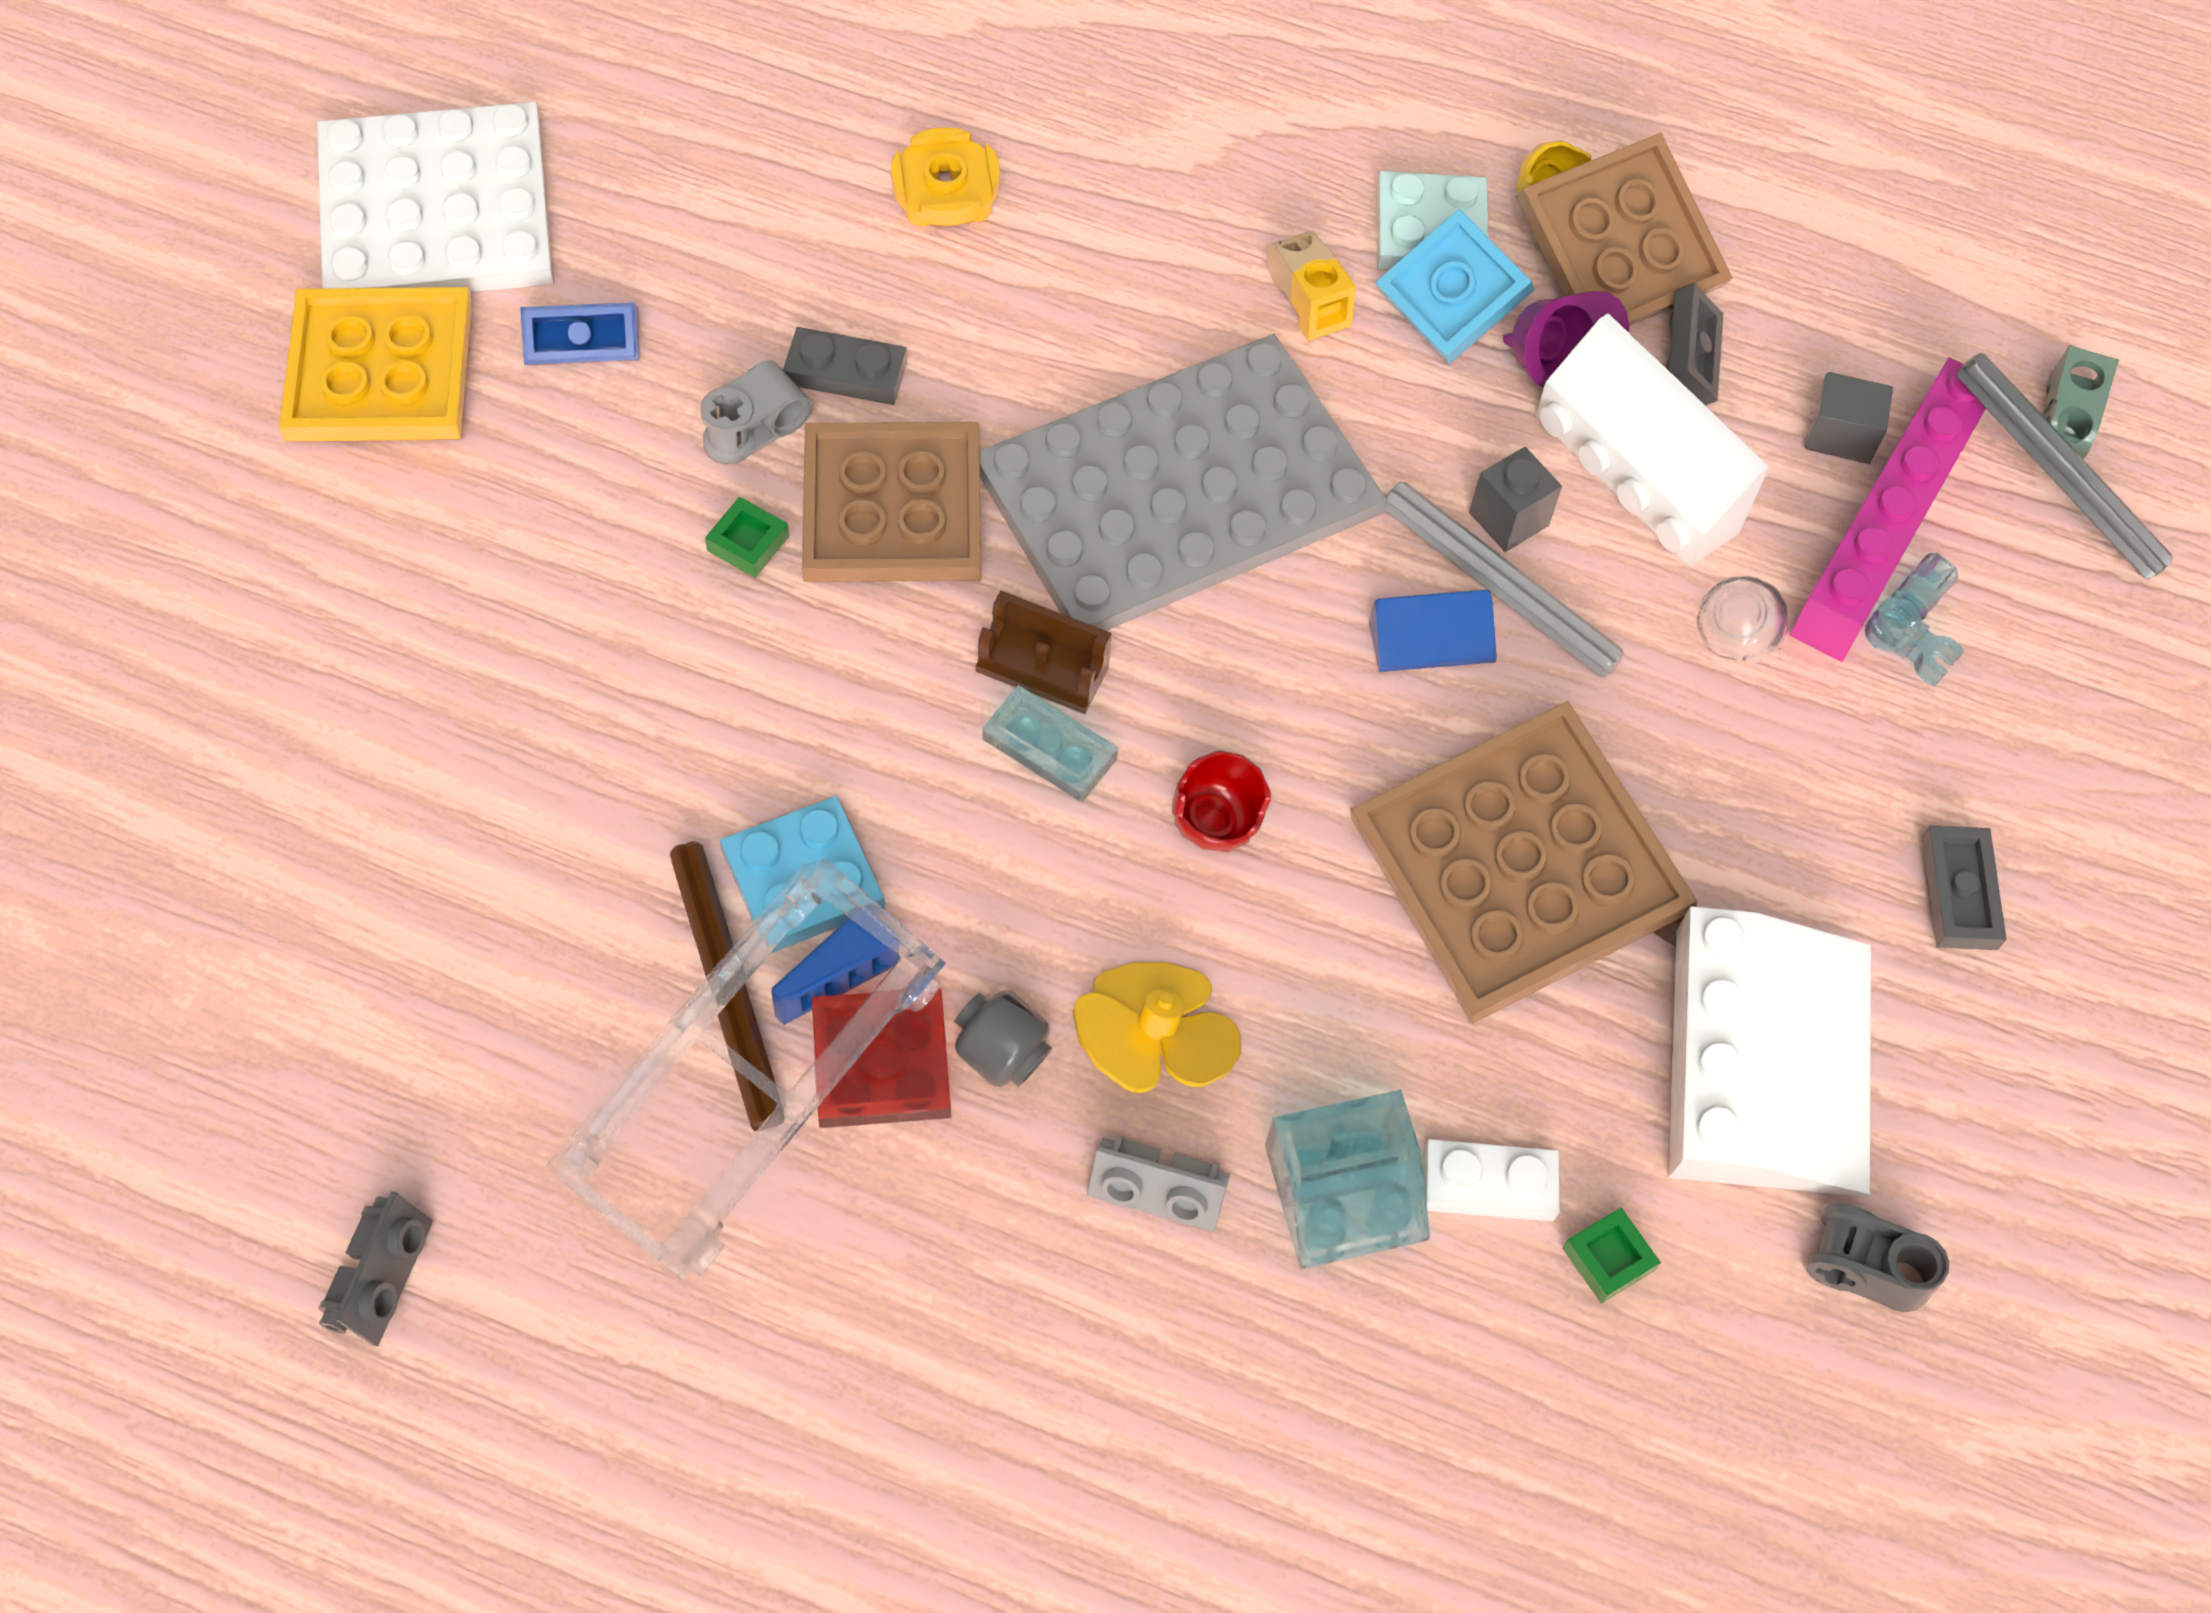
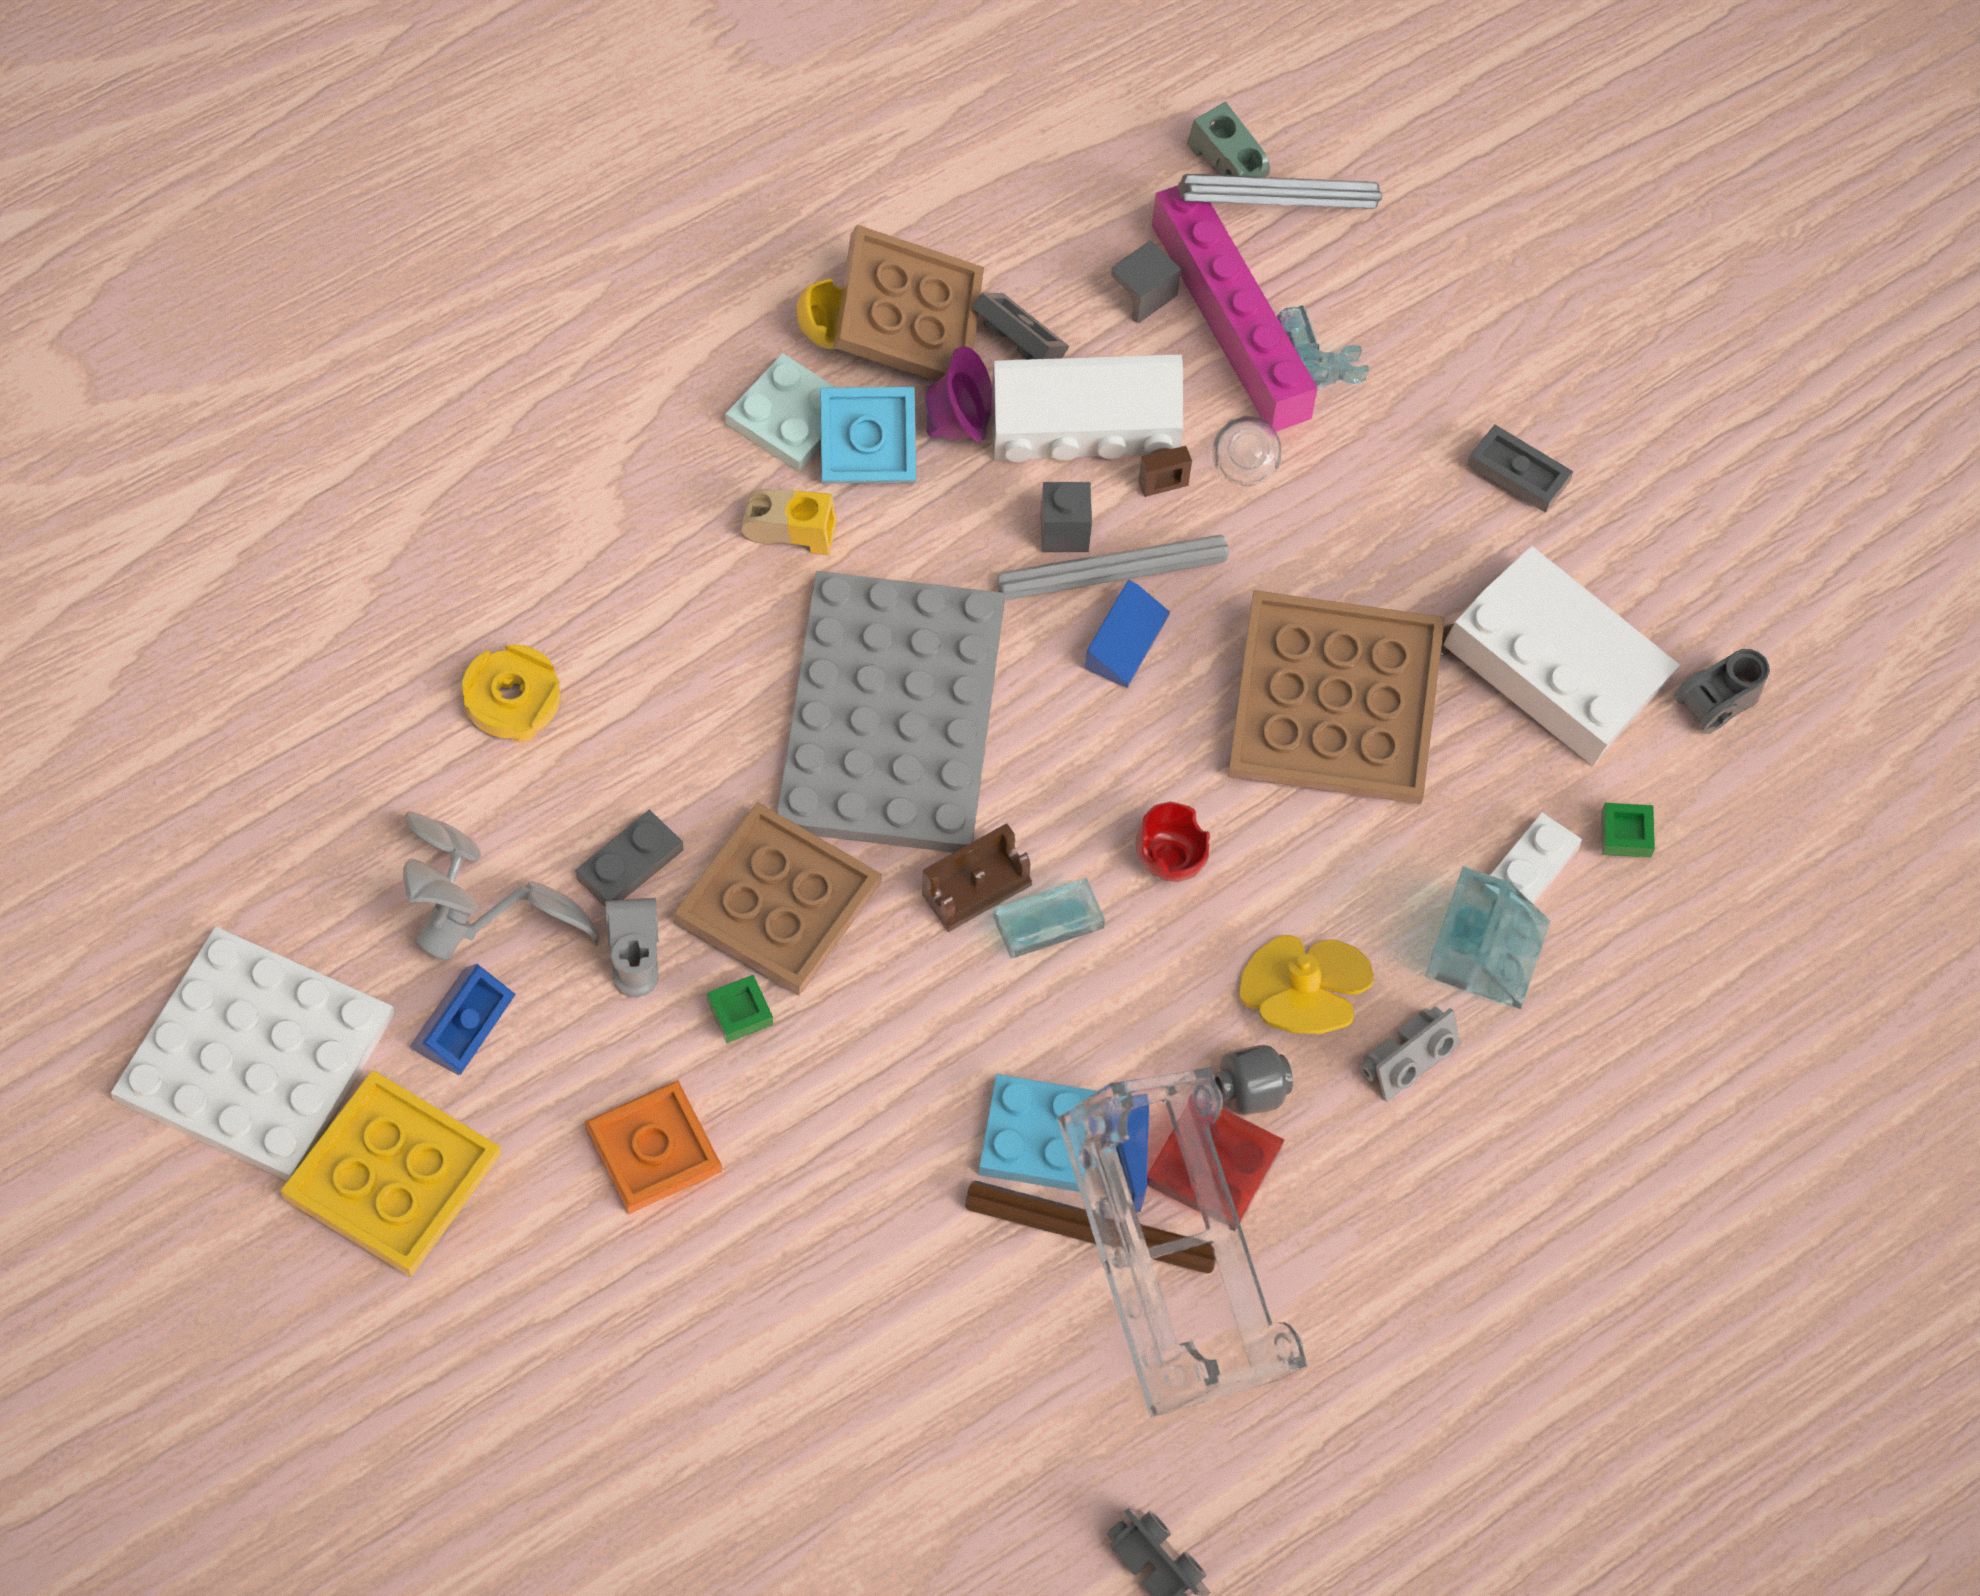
camera: 55 degrees left, 0 degrees up
(553, 554) = (653, 1147): none -> orange tile
(645, 197) = (454, 905): none -> light grey plant
(1648, 556) = (1165, 470): none -> reddish brown plate

